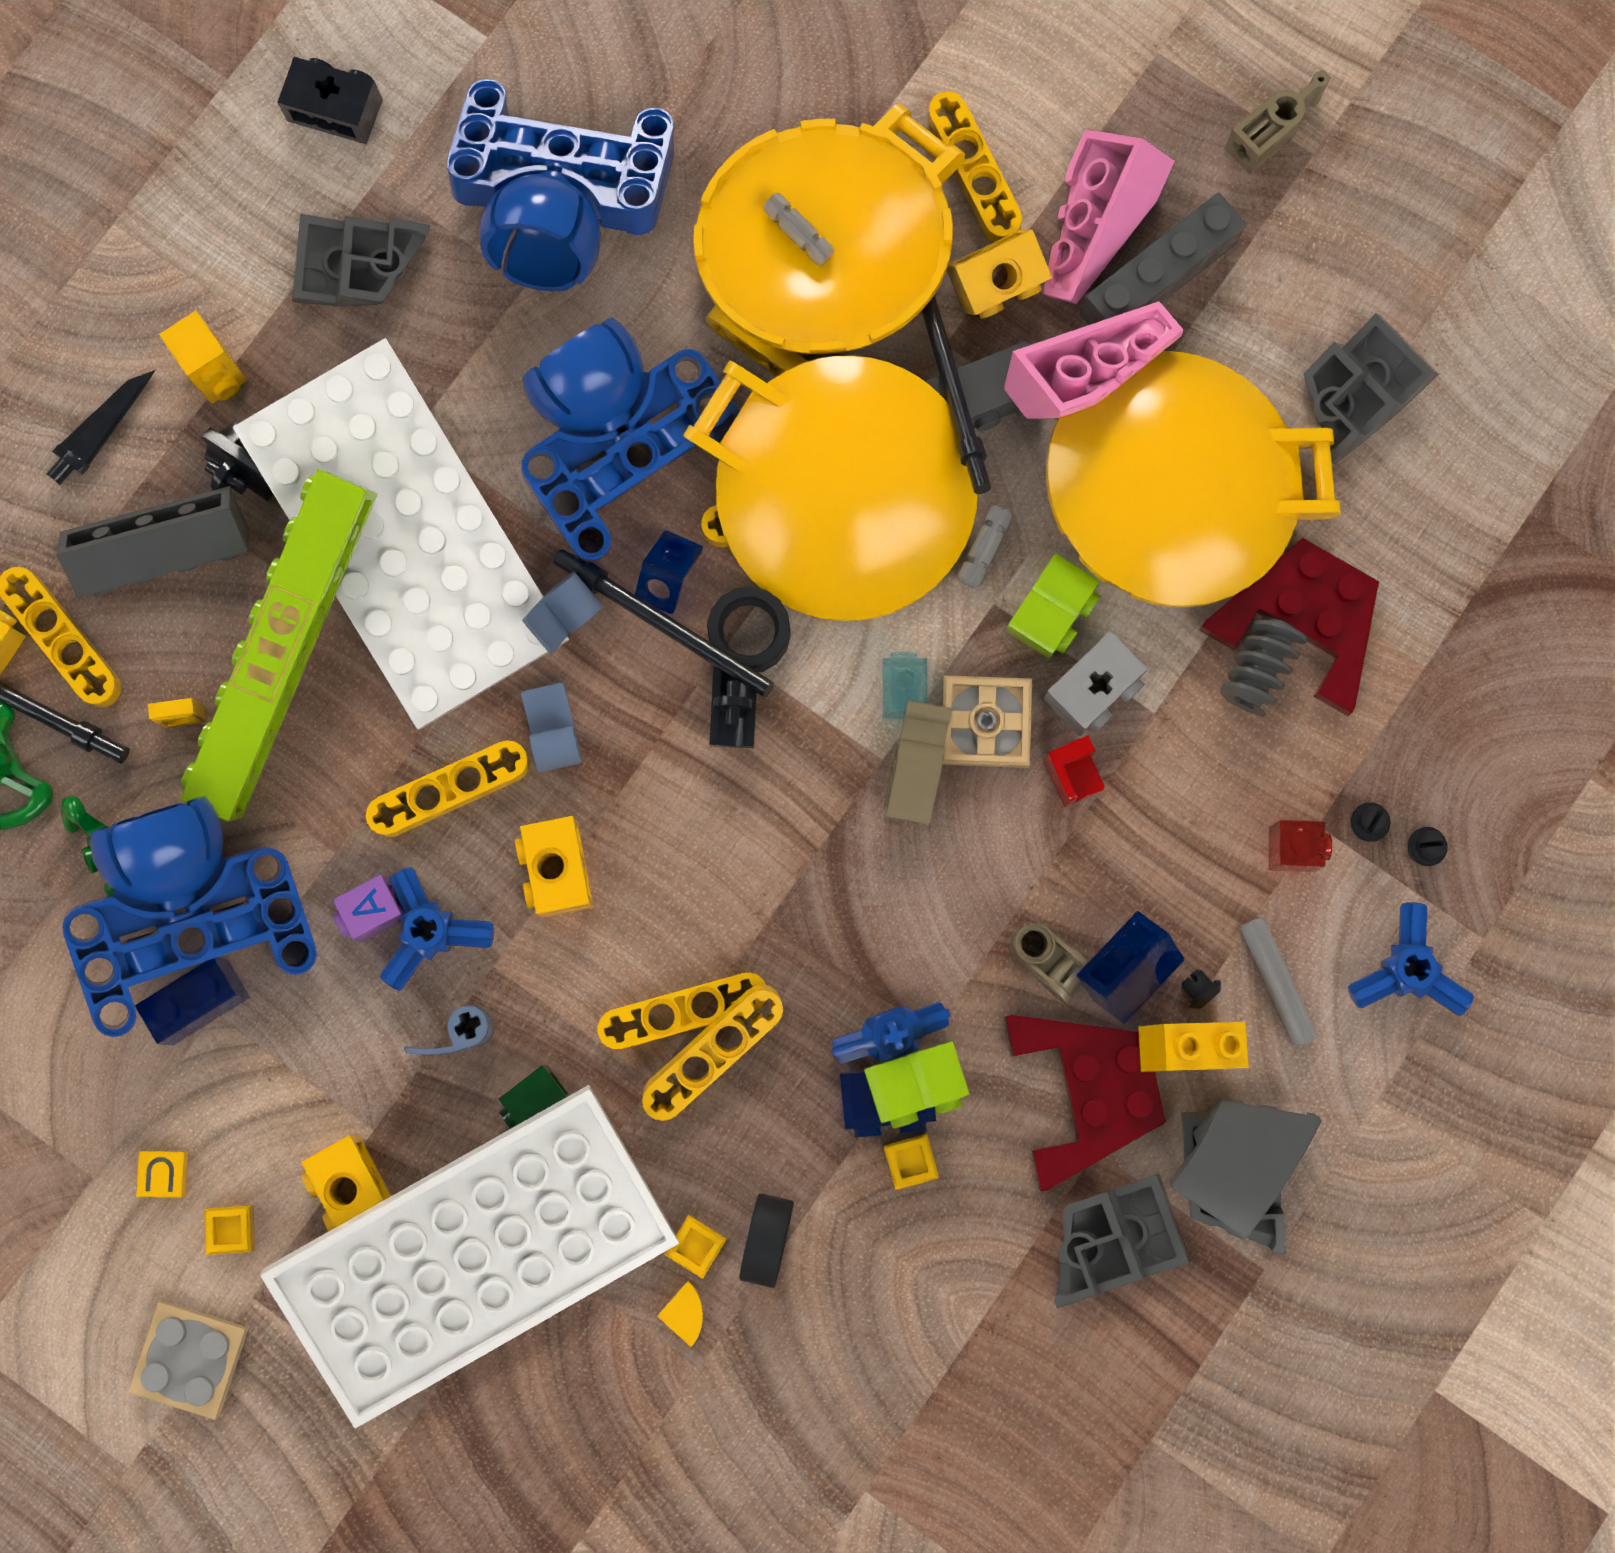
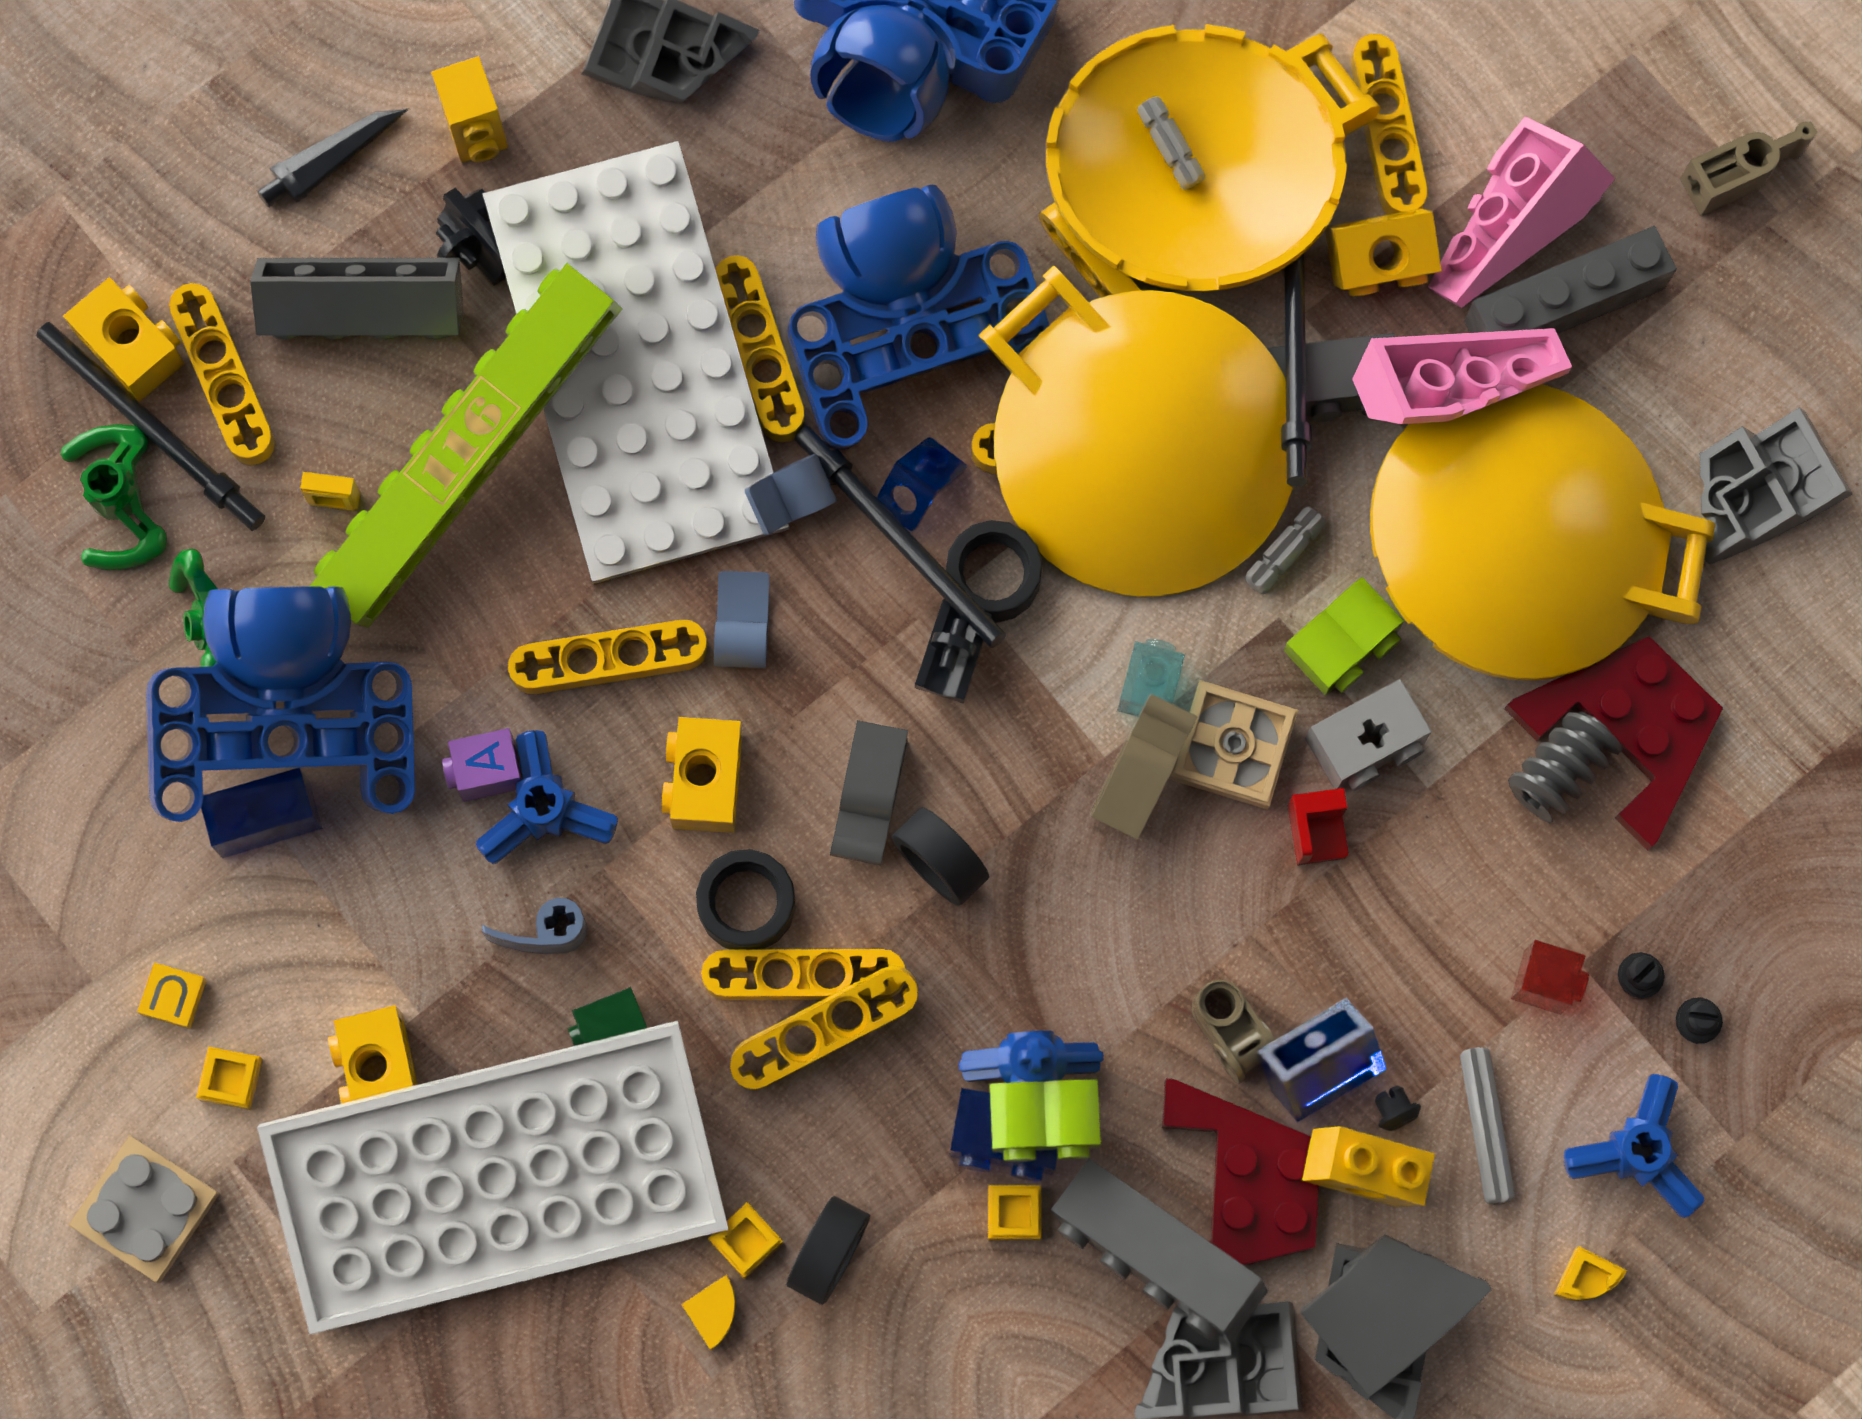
camera: 10 degrees right, 5 degrees down
(506, 492) = (760, 348): none -> yellow beam
(594, 939) = (726, 866): none -> black tyre
(696, 845) = (869, 792): none -> dark grey piece
(770, 883) = (940, 856): none -> black tyre
(1040, 1165) = (1158, 1251): none -> dark grey brick
(1393, 1084) = (1588, 1276): none -> yellow tile

